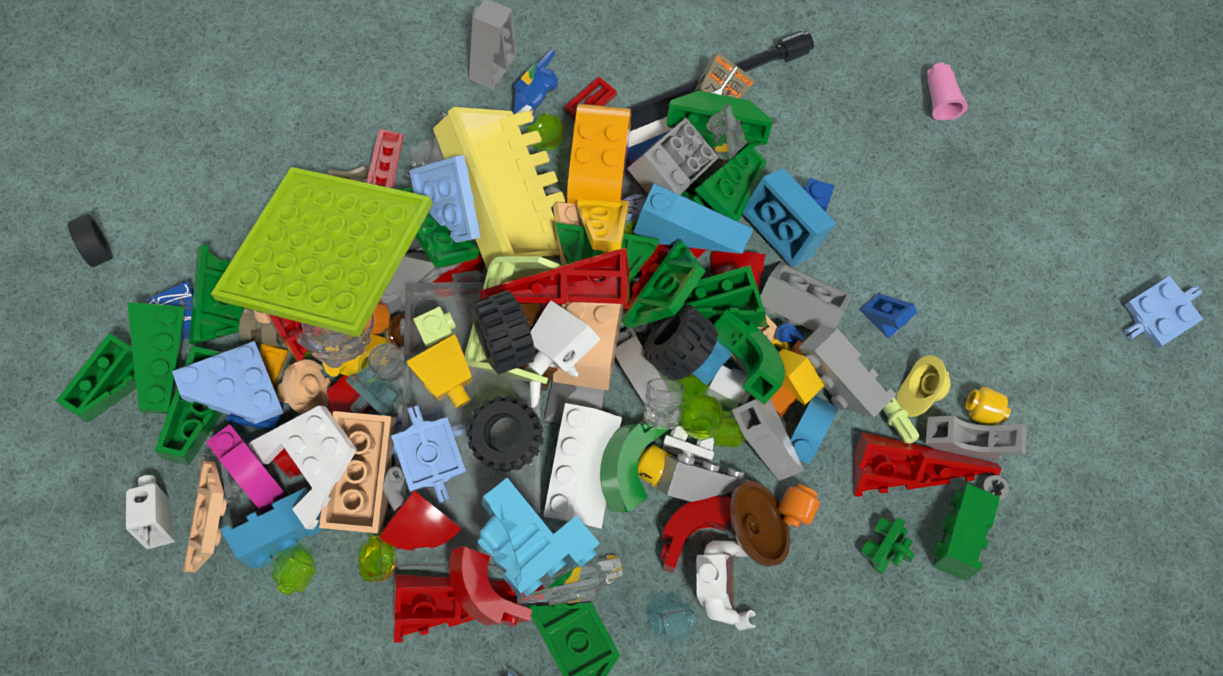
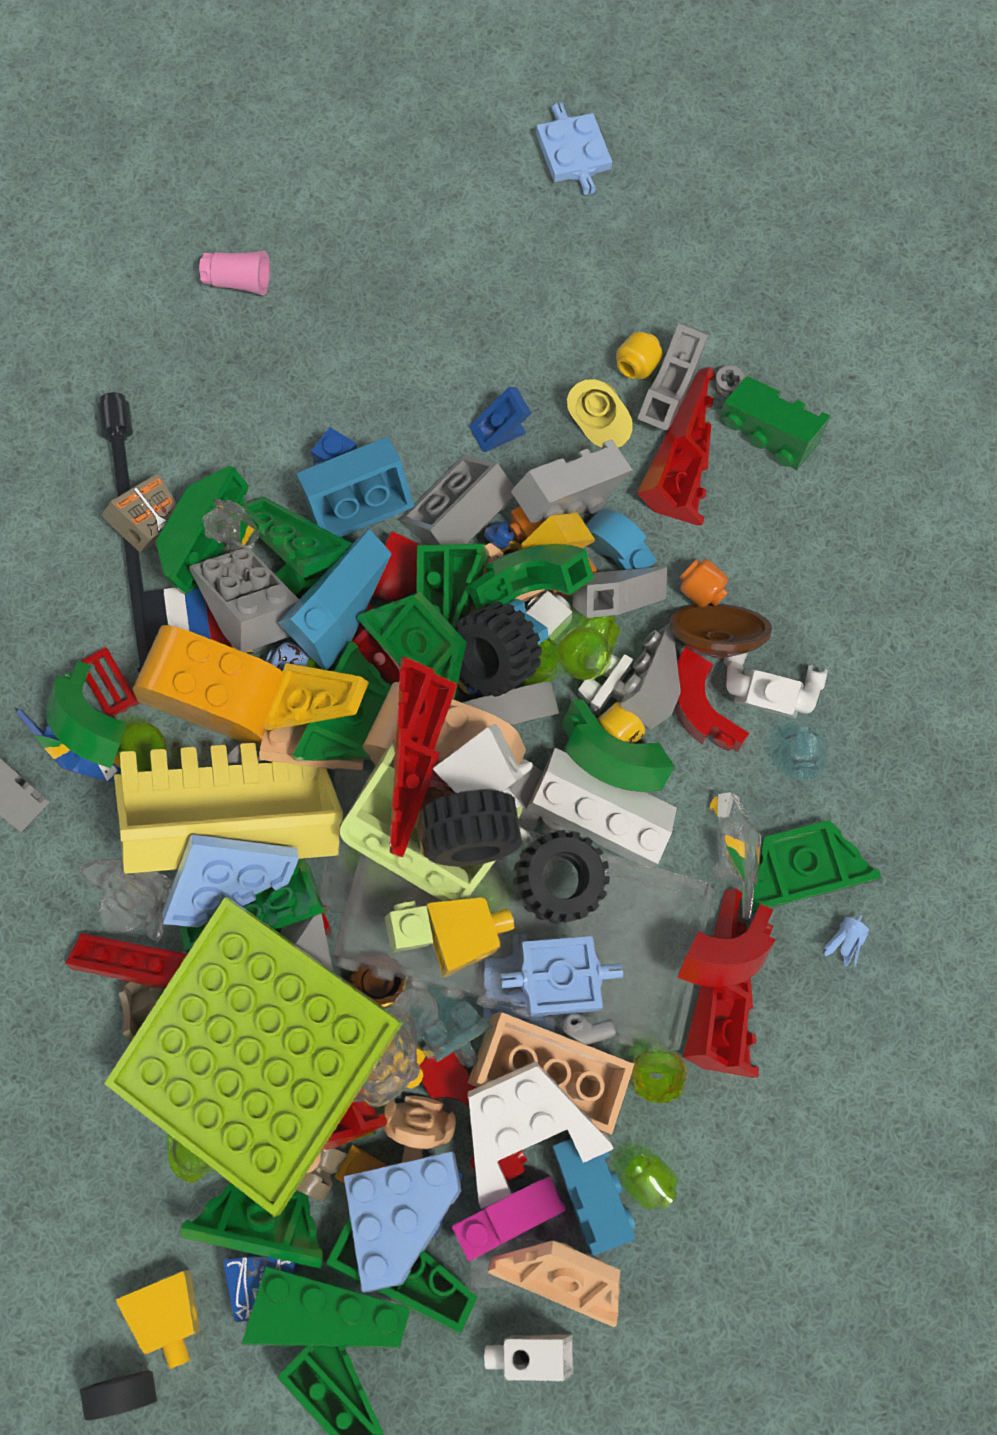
camera: 75 degrees left, 5 degrees up
(148, 257) = (163, 1316): none -> yellow torso
(419, 525) = (639, 1011): red brick -> none
(525, 545) = (699, 885): medium azure brick -> none
(543, 82) = (79, 724): none -> green arch
(662, 404) = (558, 692): clear wheel -> none
(891, 547) = (777, 516): green hips -> none
(899, 419) = (639, 447): yellowish green axle -> none

